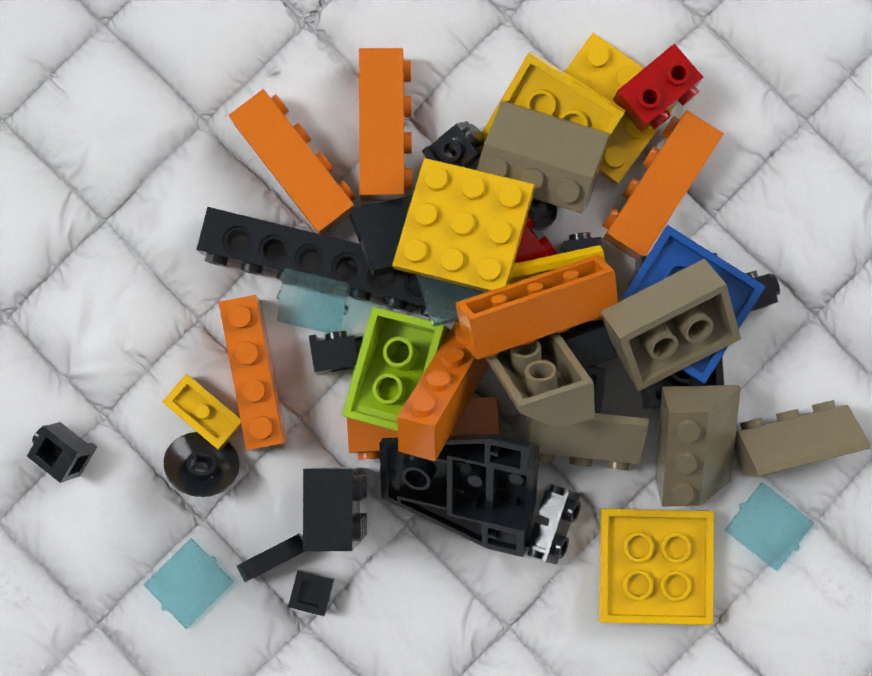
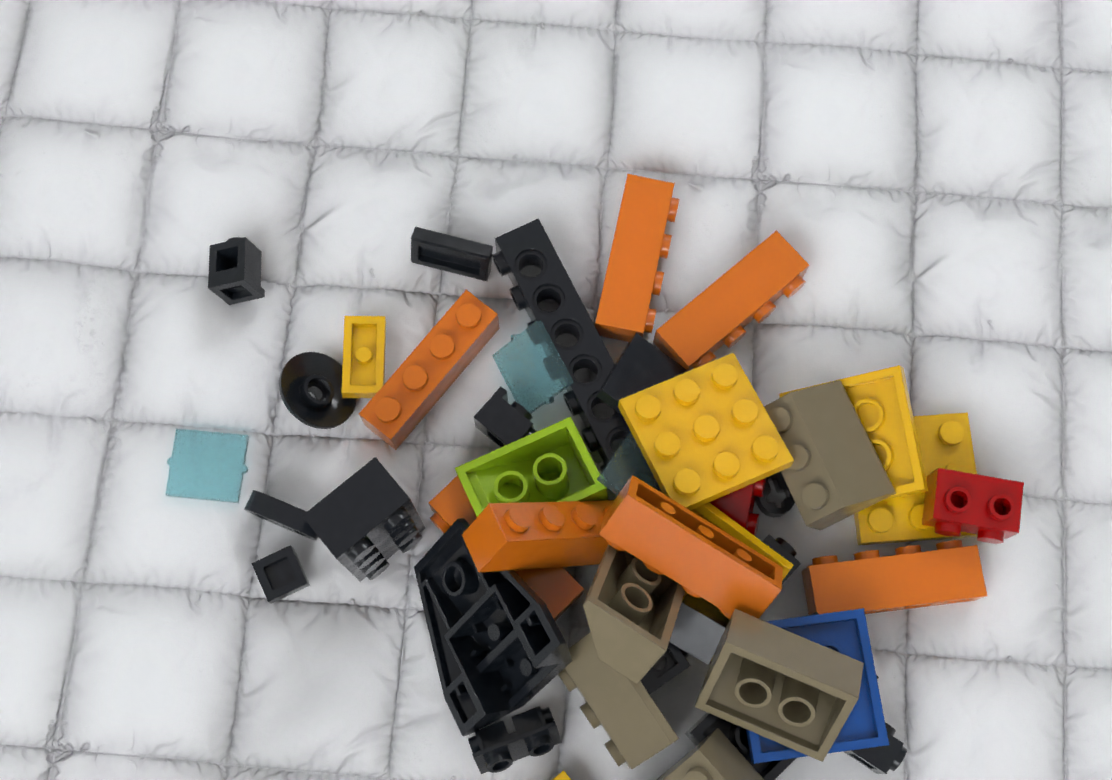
camera: 50 degrees right, 10 degrees down
(179, 289) = (451, 253): none -> black tile
(468, 143) = (780, 378): black brick -> none

